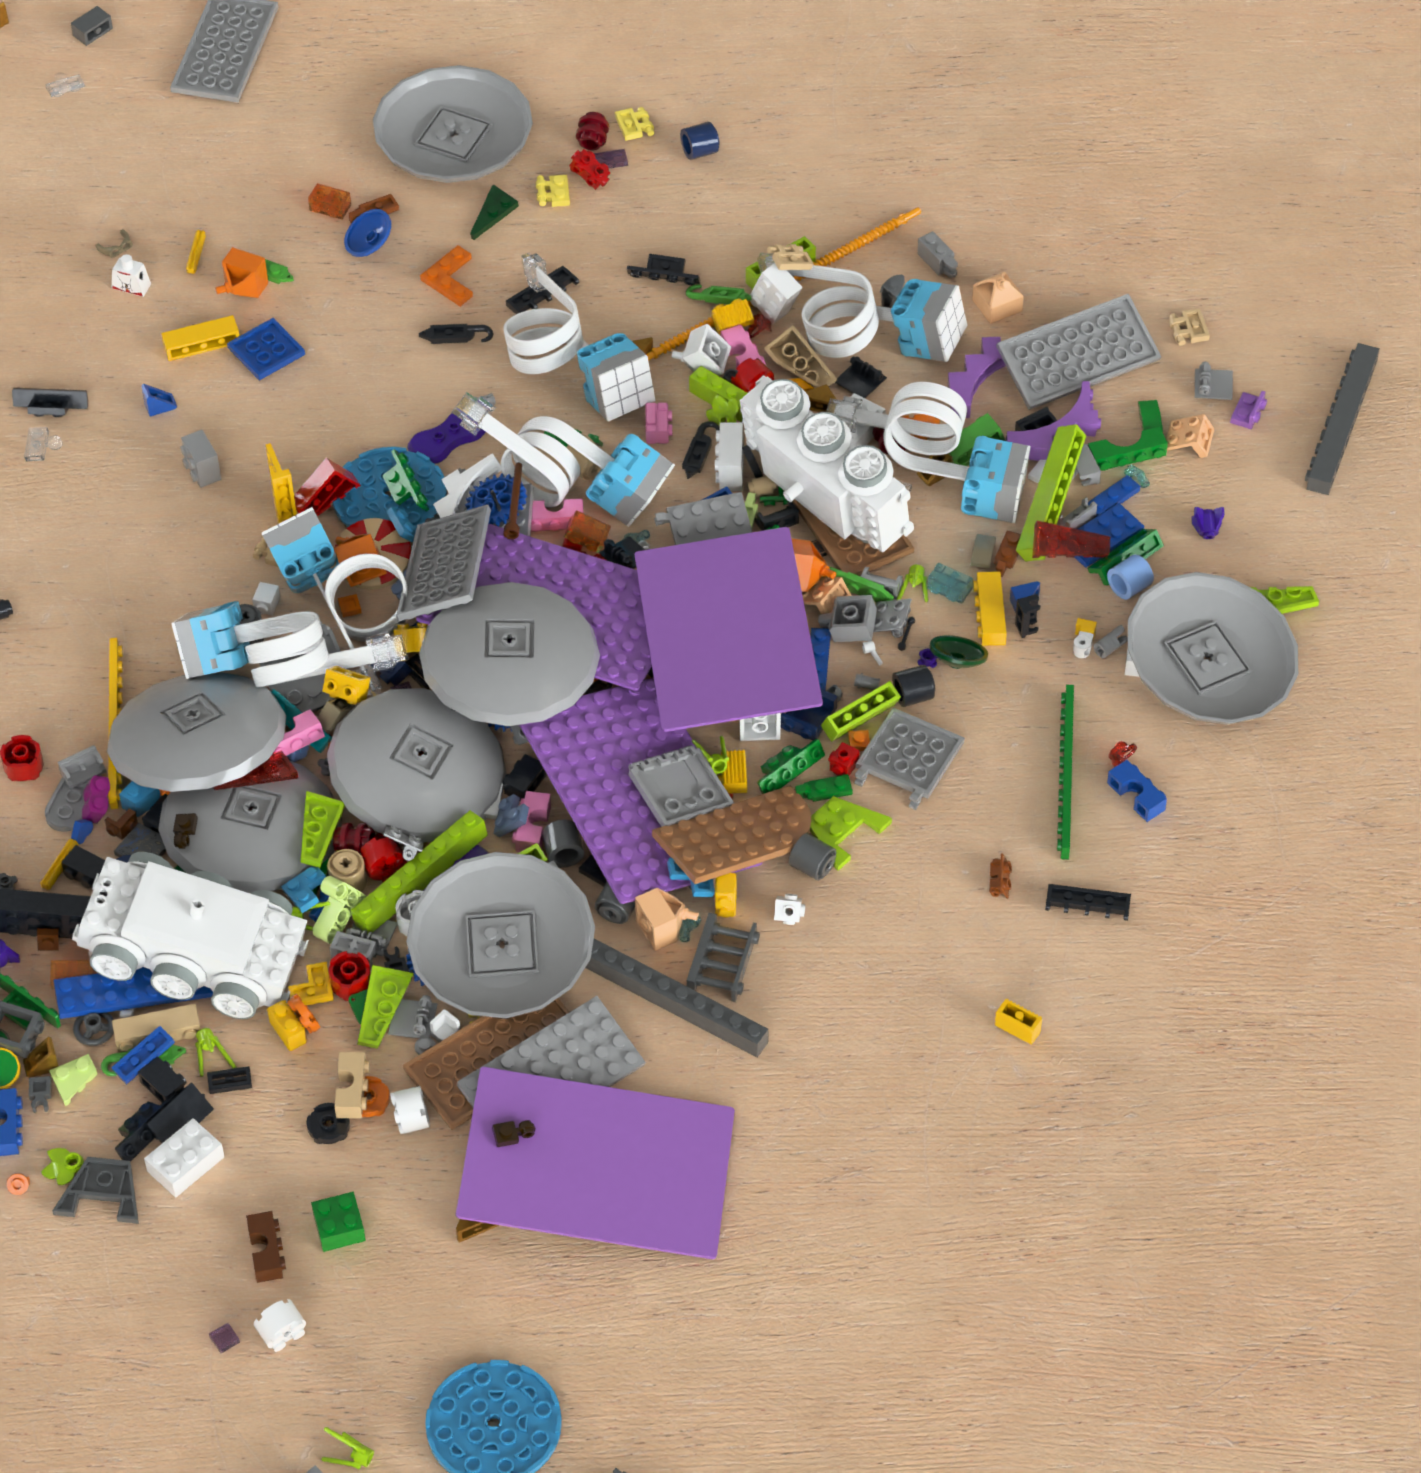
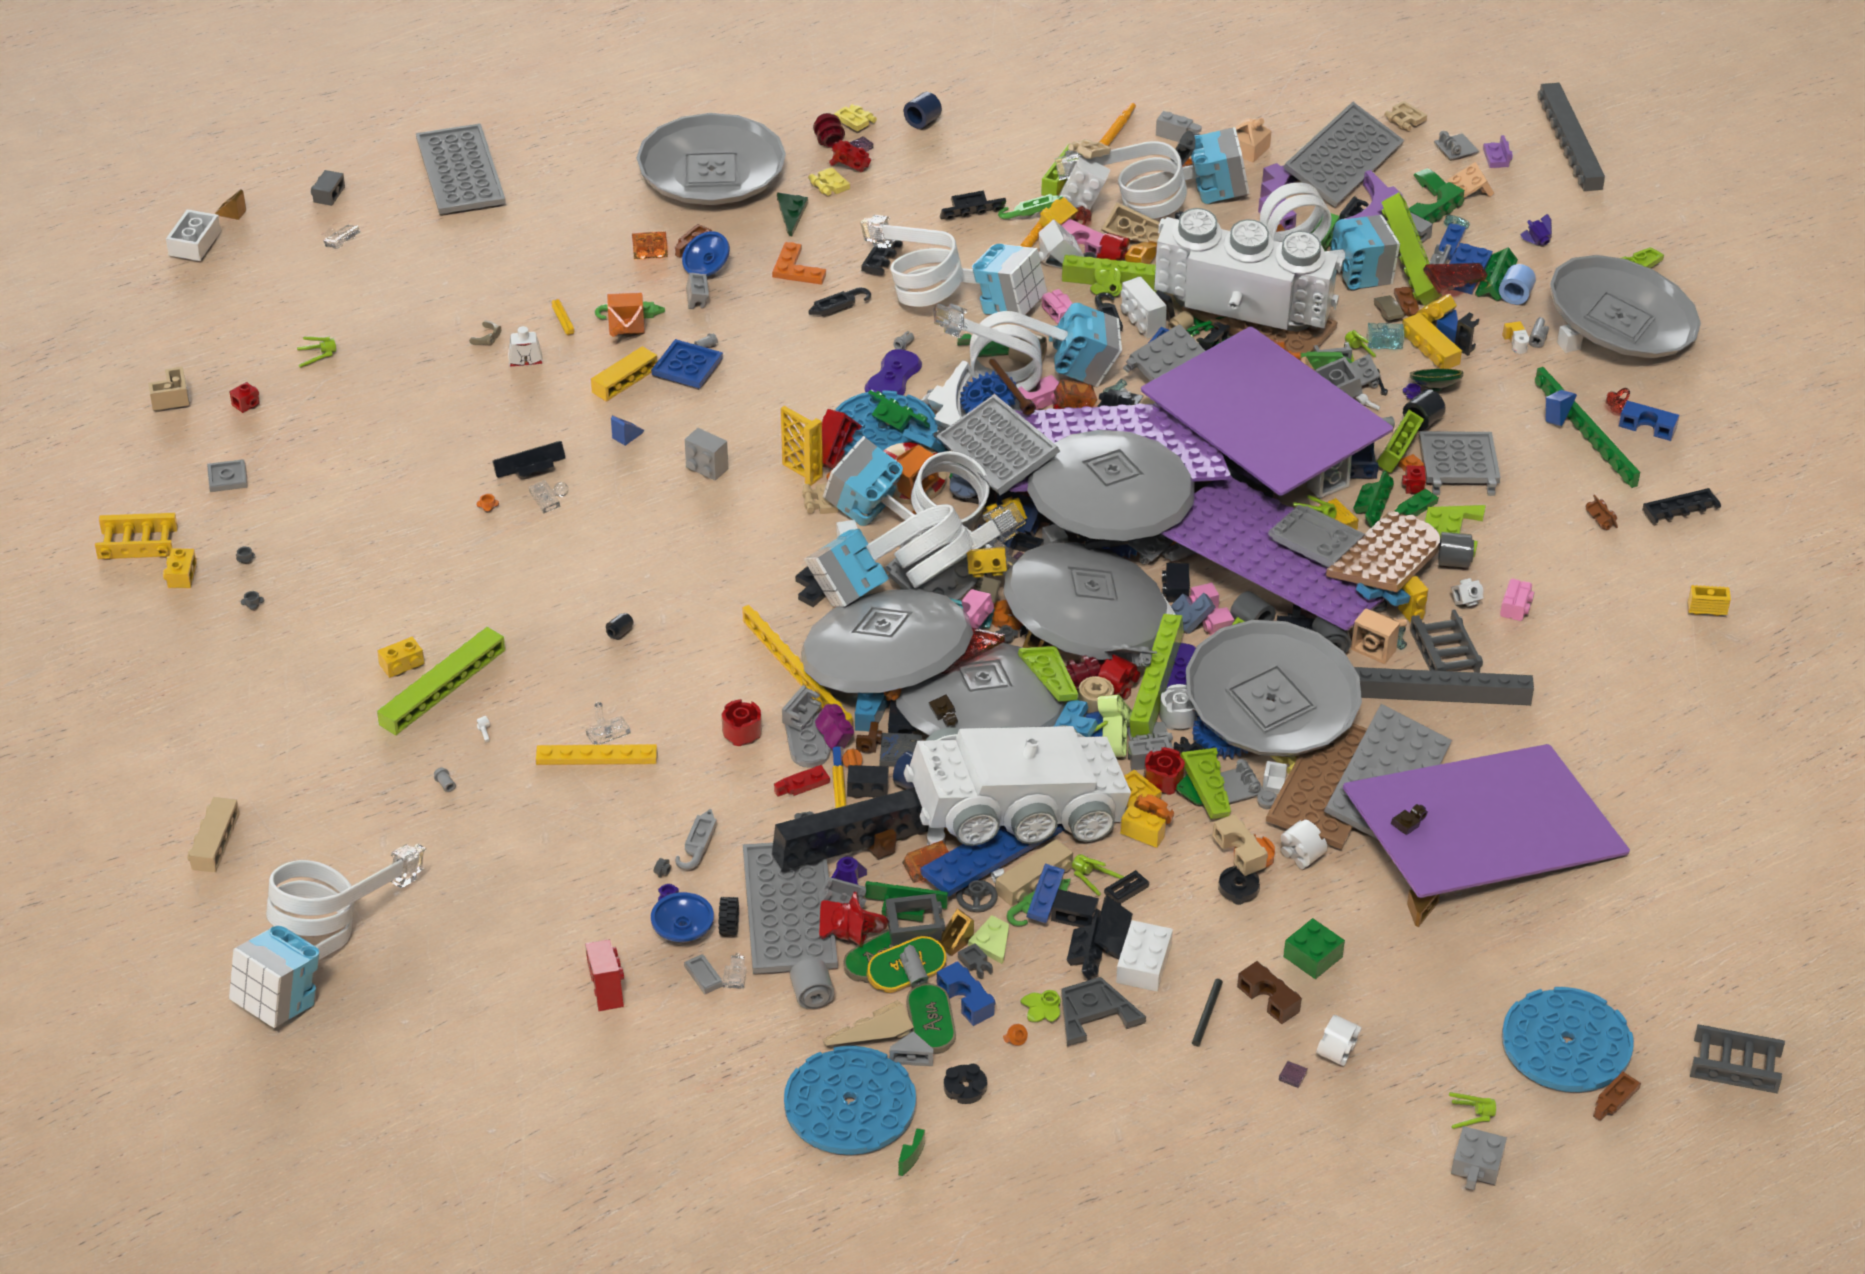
camera: 30 degrees left, 10 degrees down
(34, 842) = (802, 781): none -> red hinge
(92, 838) = (852, 757): none -> orange plate
(199, 1239) = (1207, 1012): none -> pearl dark grey bar
(301, 331) = (709, 340): none -> light grey pin
(333, 268) = (696, 289): none -> light grey hinge
(832, 937) = (1516, 600): none -> bright pink brick
(1019, 574) = (1438, 308): none -> yellow brick
(1052, 736) = (1558, 406): none -> blue slope

